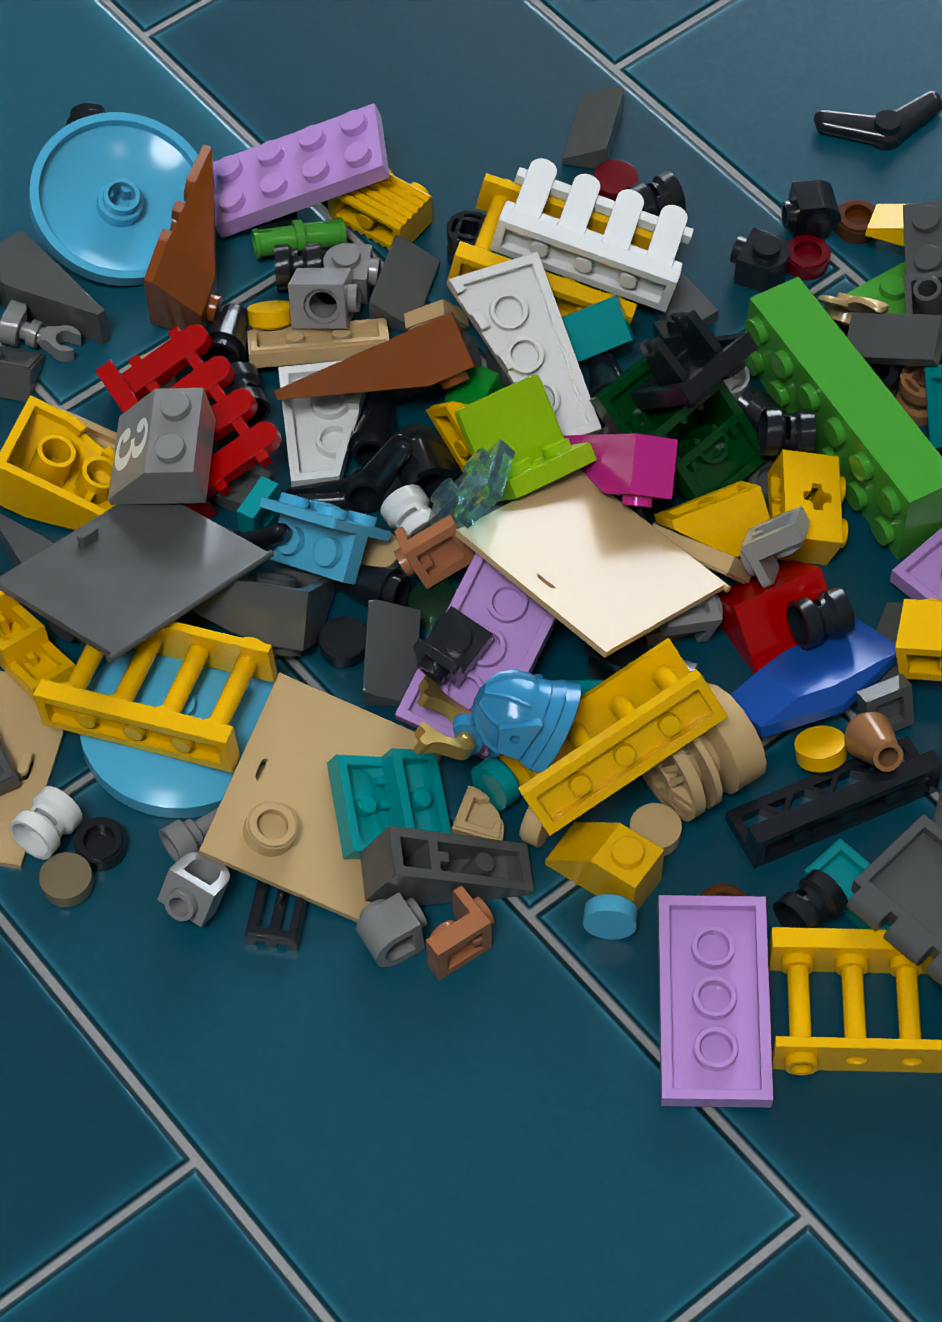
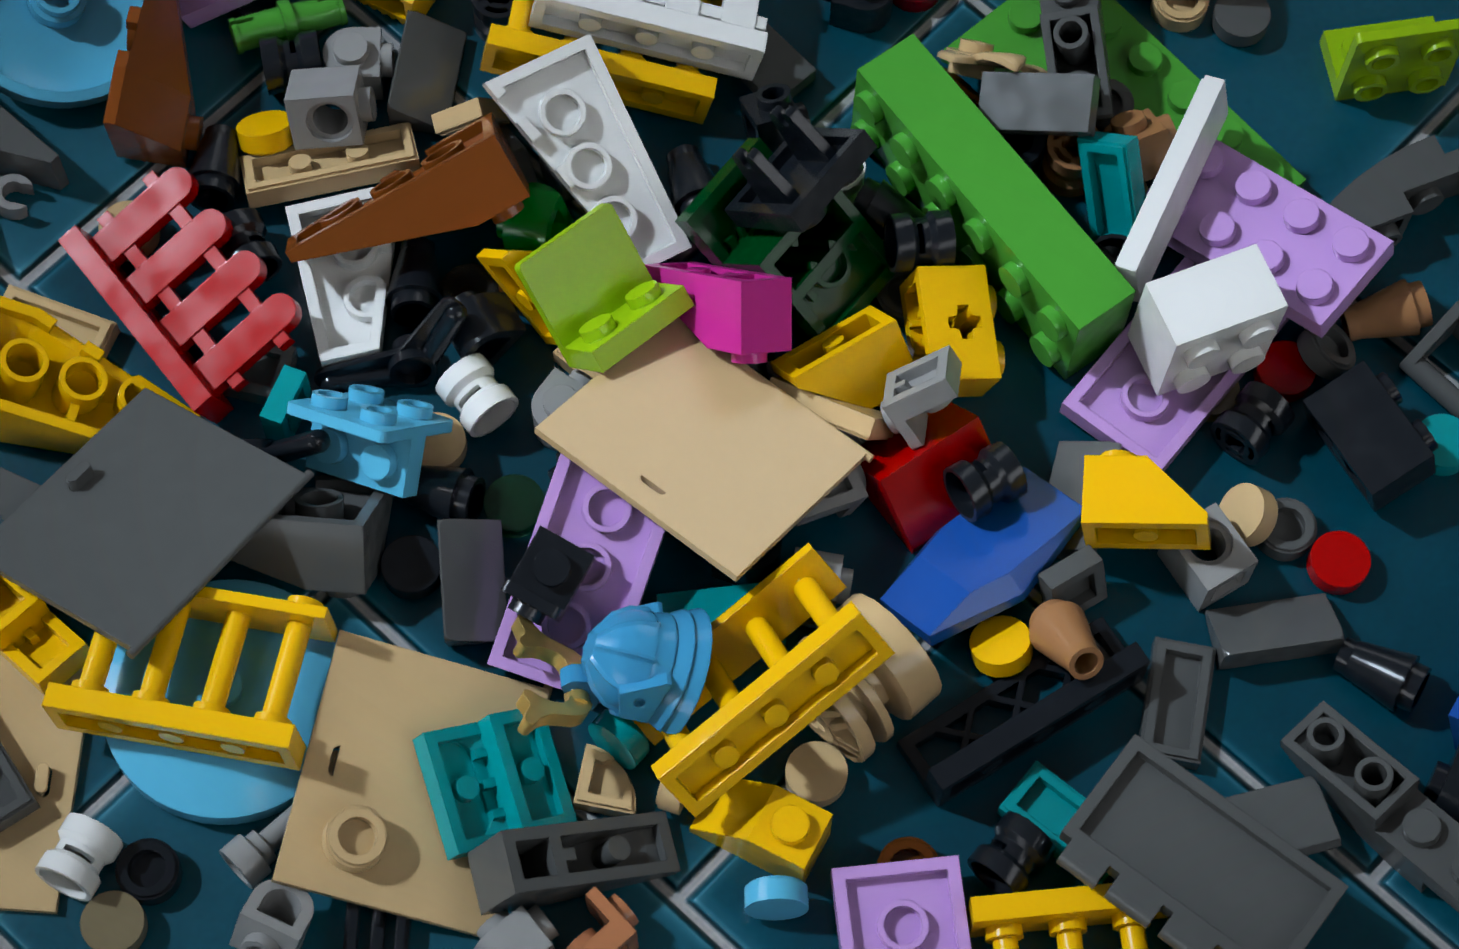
camera: 10 degrees left, 10 degrees up
(164, 449) = (158, 348): light grey slope -> none
(433, 552) = (506, 447): nougat bracket -> none
(476, 488) = (550, 368): clear light blue plate -> none
(598, 328) = (672, 117): teal tile -> none

